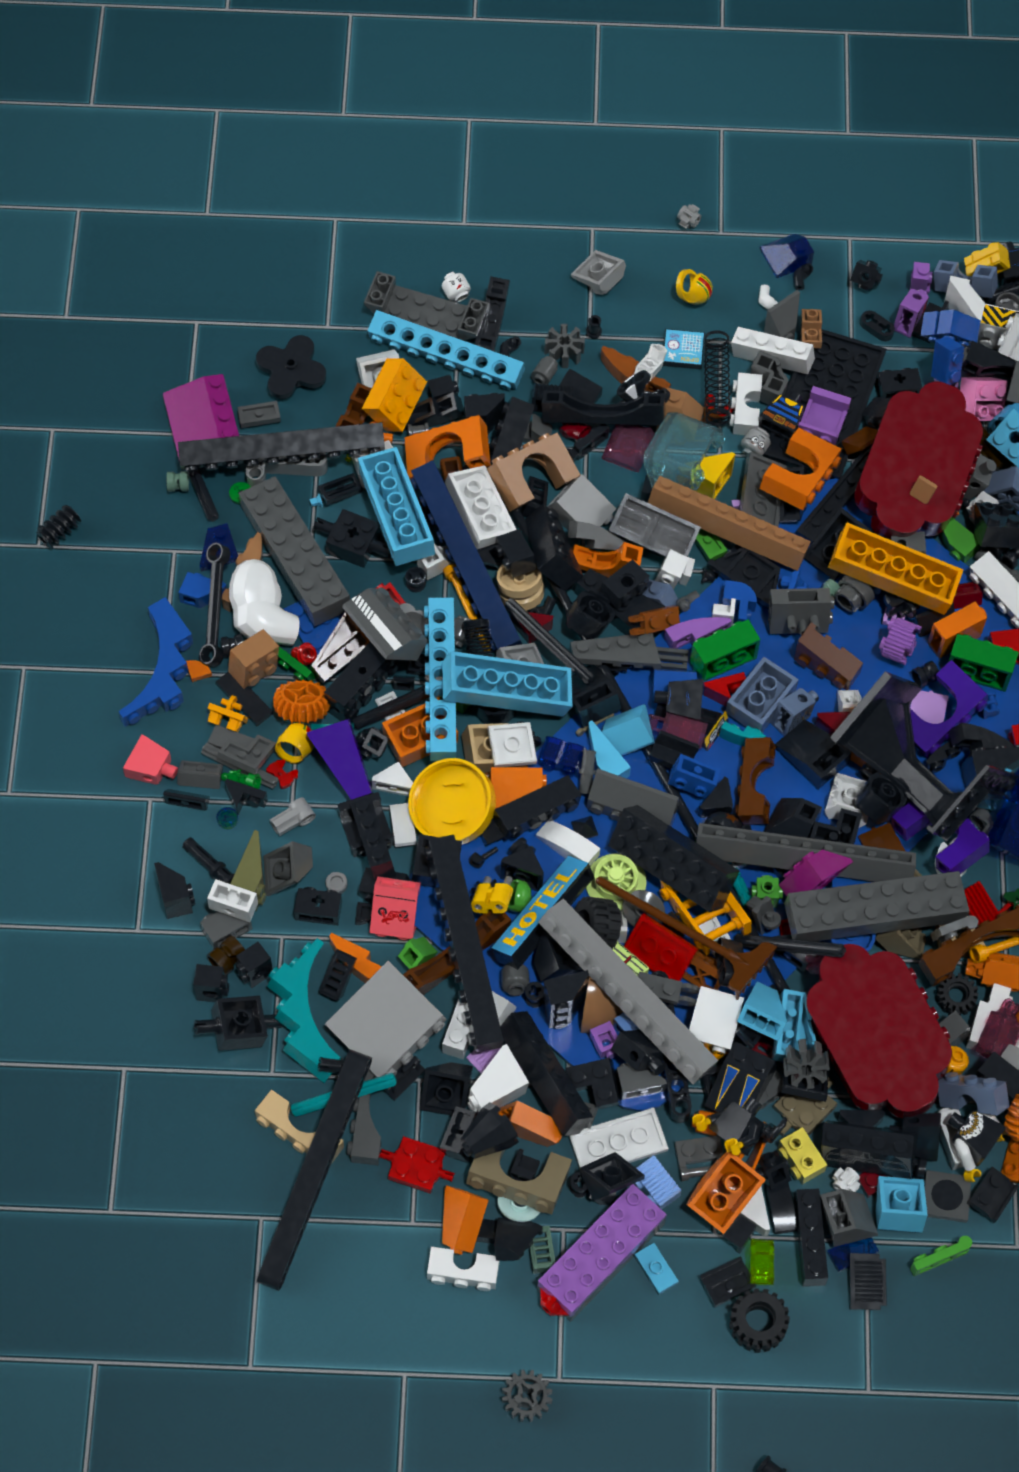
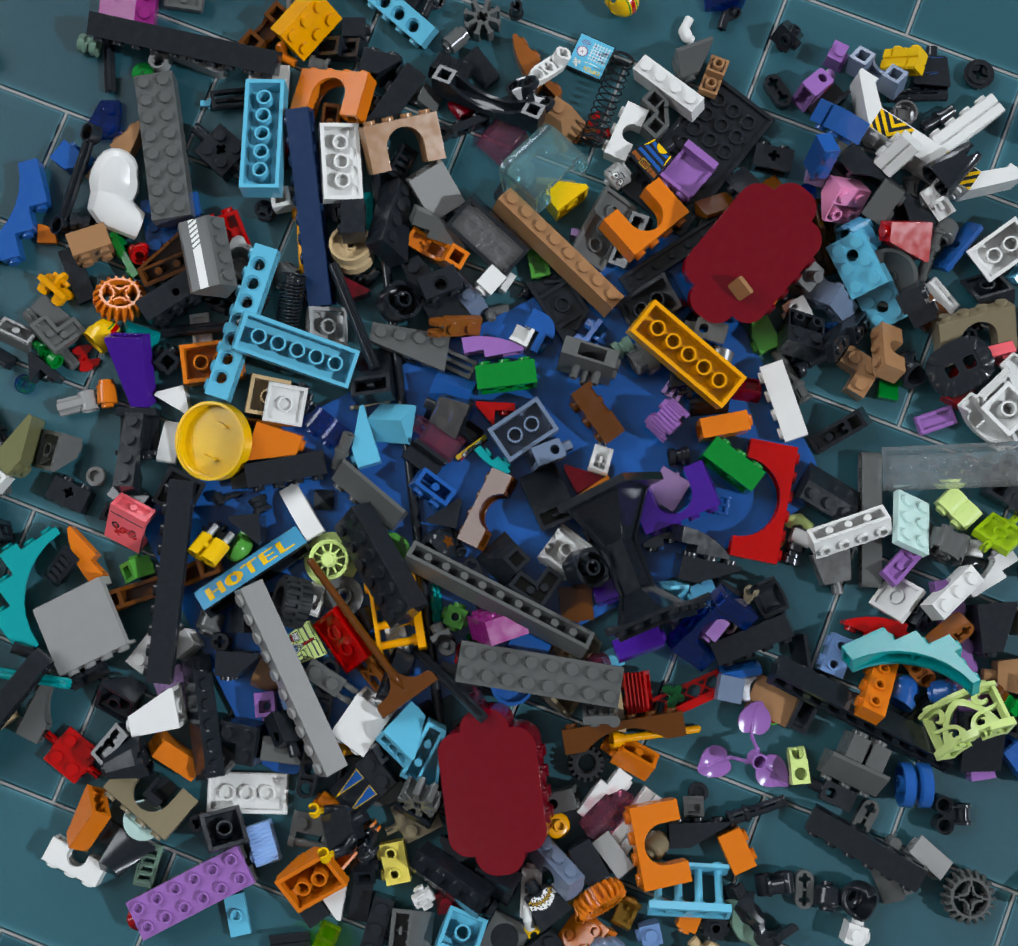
camera: 20 degrees right, 20 degrees up
(319, 797) = (106, 393): none -> orange brick

